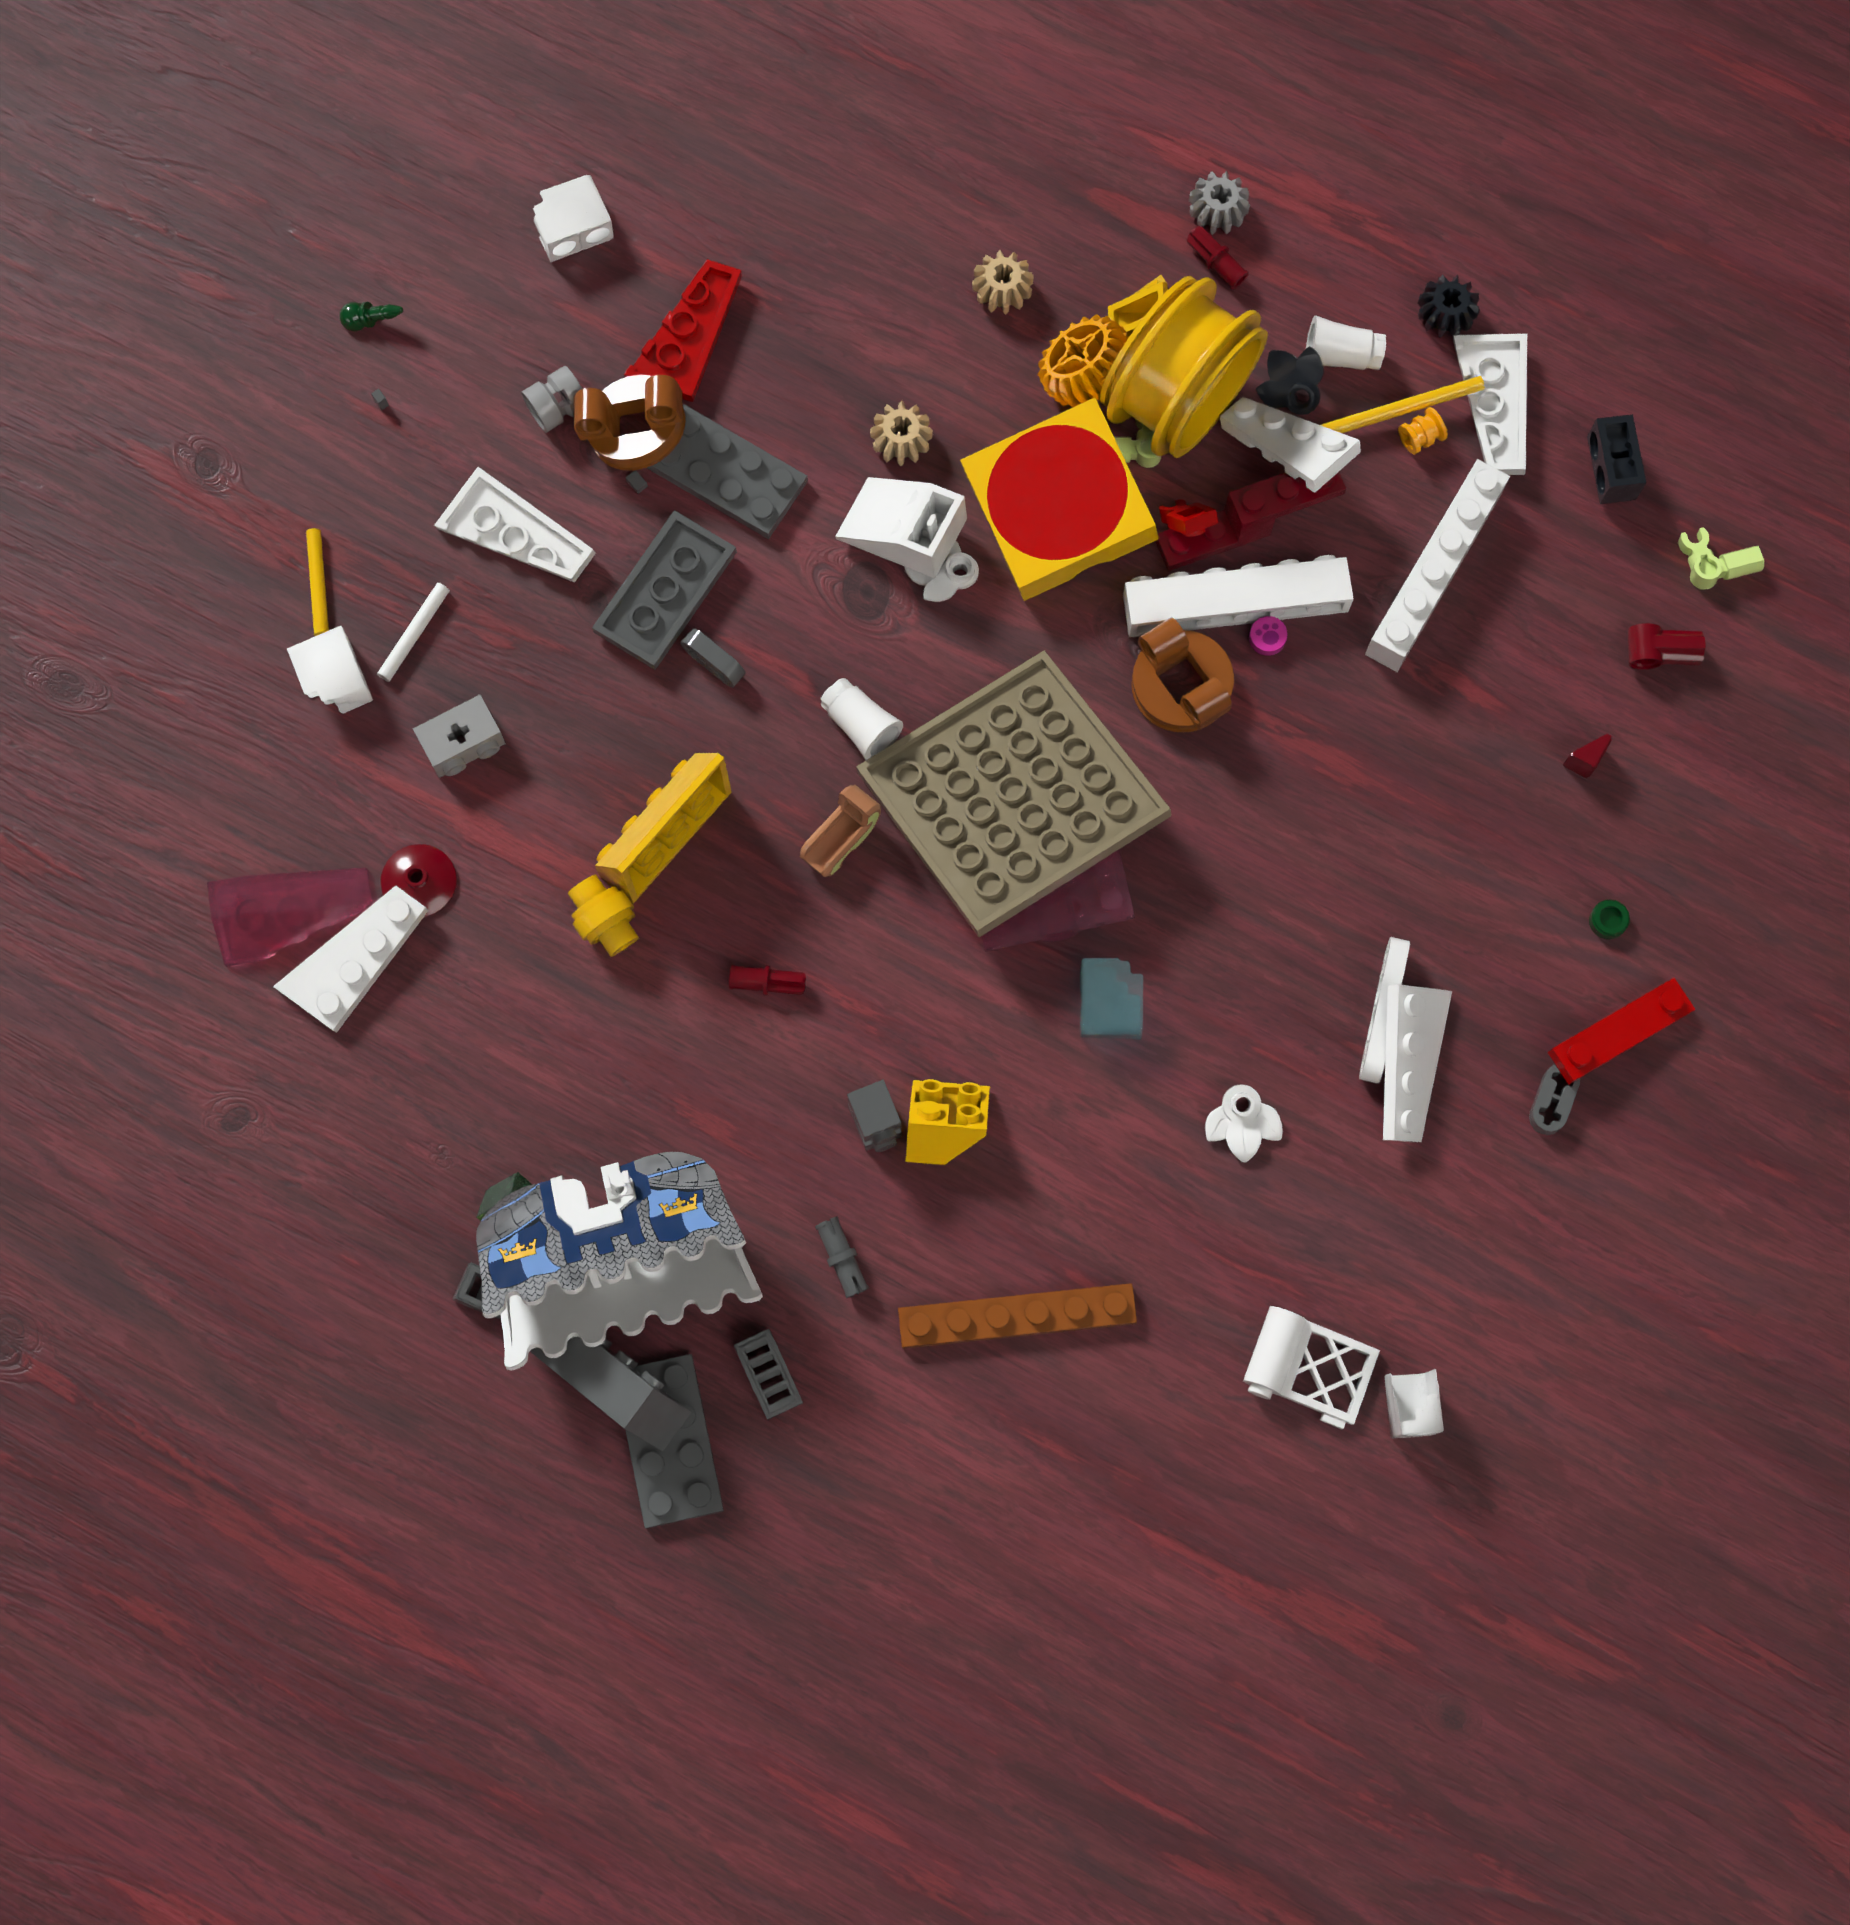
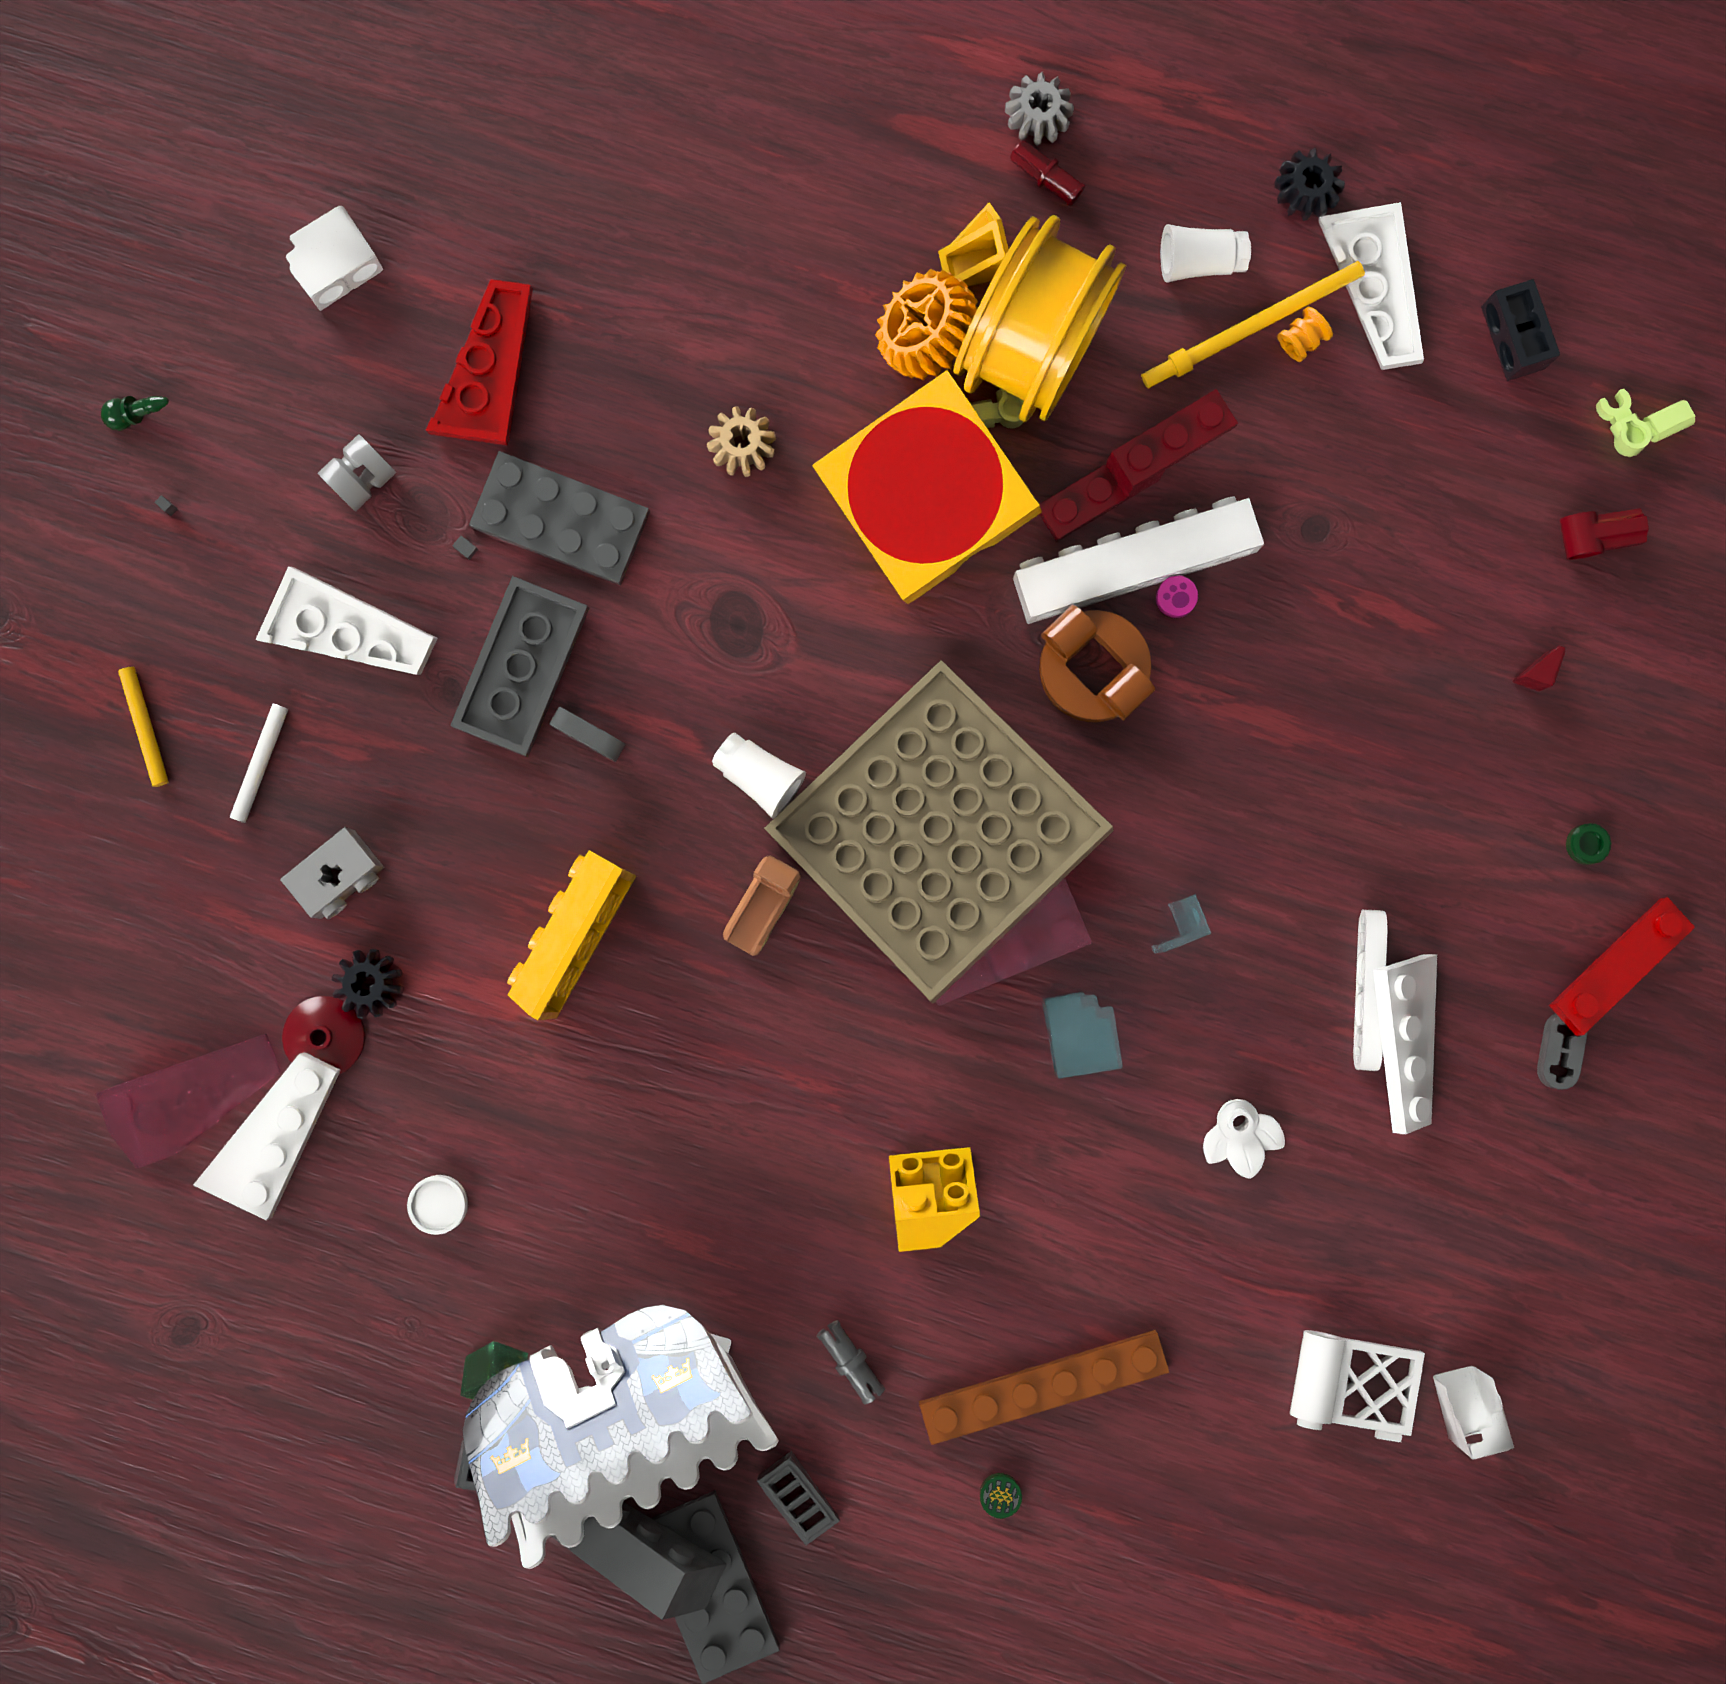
camera: 10 degrees left, 10 degrees up
(330, 670) = (178, 826): white piece -> none
(482, 842) = (379, 992): none -> black gear
(490, 1046) = (437, 1204): none -> white piece
(599, 414) = (409, 487): dark orange piece -> none
(603, 915) = (527, 1046): yellow piece -> none
(767, 980) = (715, 1079): dark red axle -> none
(875, 1116) = (858, 1214): dark grey brick -> none
(905, 522) = (764, 545): white slope -> none
(946, 582) = (809, 586): white plate -> none
(957, 1407) = (1000, 1495): none -> dark green tile
(1002, 293) = (819, 260): tan gear -> none
(1188, 519) = (1070, 485): red plate -> none
(1226, 919) = (1189, 922): none -> clear light blue panel
(1288, 376) = (1151, 297): black plate -> none
(1297, 444) = (1179, 382): white wing -> none
(1437, 565) = (1346, 485): white brick -> none

